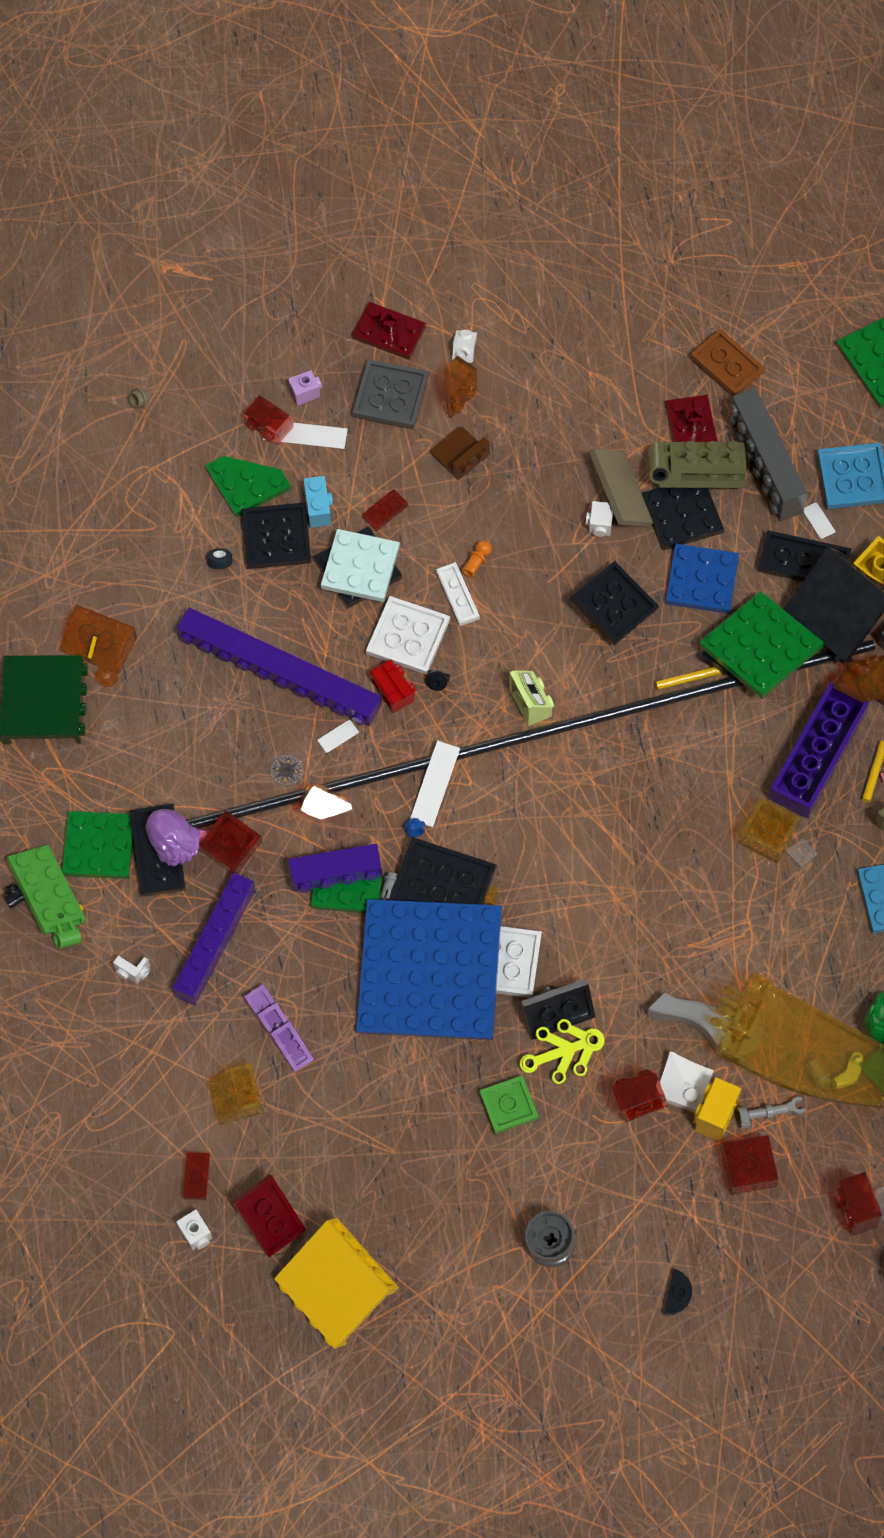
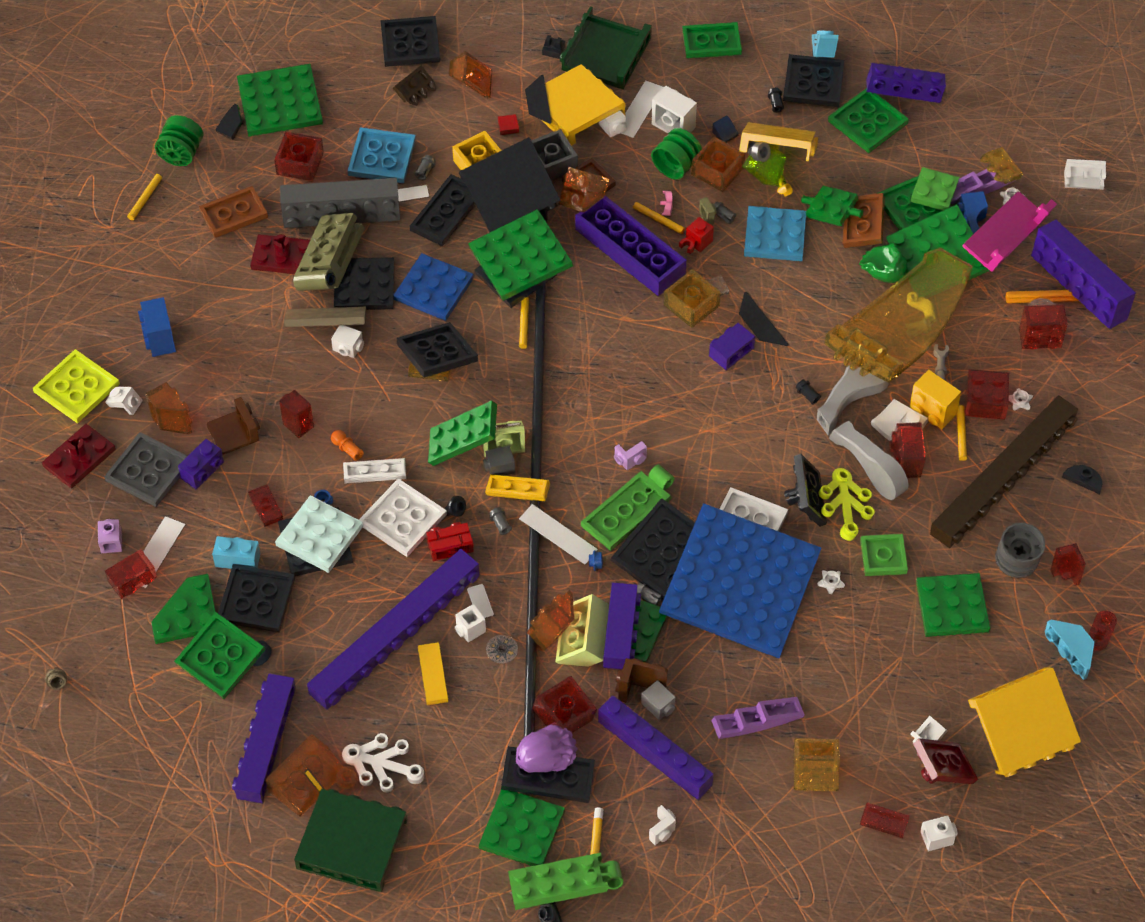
camera: 75 degrees left, 10 degrees down
(111, 913) = (596, 833): none -> yellow bar
(129, 592) = (264, 738): none -> dark purple brick
(130, 699) = (381, 761): none -> white plant
(202, 524) = (219, 655): none -> green plate
(242, 716) = (432, 673): none -> yellow tile
(268, 929) = (658, 700): none -> light grey brick
(278, 890) = (639, 674): none -> reddish brown bracket
(300, 731) = (470, 623): none -> white brick
(304, 1195) = (929, 730): none -> white bracket
(325, 835) = (585, 637): none -> yellowish green slope
(406, 552) = (324, 495): none -> blue plate
(409, 436) = (201, 464): none -> dark purple brick
(431, 727) = (498, 516): none -> dark grey pin
(453, 1321) = (1072, 644): none -> medium azure slope
(464, 1055) = (831, 575): none -> white plate
(465, 299) = (76, 386): none -> neon yellow plate
(471, 1189) = (952, 604): none -> green plate
(476, 729) = (517, 487): none -> yellow tile
(484, 1346) = (1102, 632): none -> clear red plate
(488, 840) = (628, 507): none -> bright green hinge
(490, 499) = (296, 413): none -> clear red brick
(501, 703) = (499, 461): none -> dark grey brick
(512, 654) = (462, 433): none -> plate
(546, 1293) = (1068, 563): none -> clear red panel
(550, 829) = (631, 457): none -> lavender bracket
(552, 342) = (156, 327): none -> blue brick
(605, 1074) = (879, 466): none -> light grey animal
(656, 1206) = (1003, 472): none -> dark brown brick
(692, 1152) = (961, 427): none -> yellow bar
(693, 980) = (807, 391): none -> black pin
(718, 277) = (144, 197): none -> yellow bar
(724, 887) = (731, 346): none -> dark purple brick
(764, 1199) = (1024, 396): none -> white plate
(772, 909) = (759, 322): none -> black sticker
(791, 280) = (179, 140): none -> green wheel
(817, 397) = (299, 156): none -> clear red brick
(843, 321) = (230, 123): none -> black slope
(854, 522) = (426, 164): none -> dark grey pin
(859, 816) = (698, 236): none -> red brick

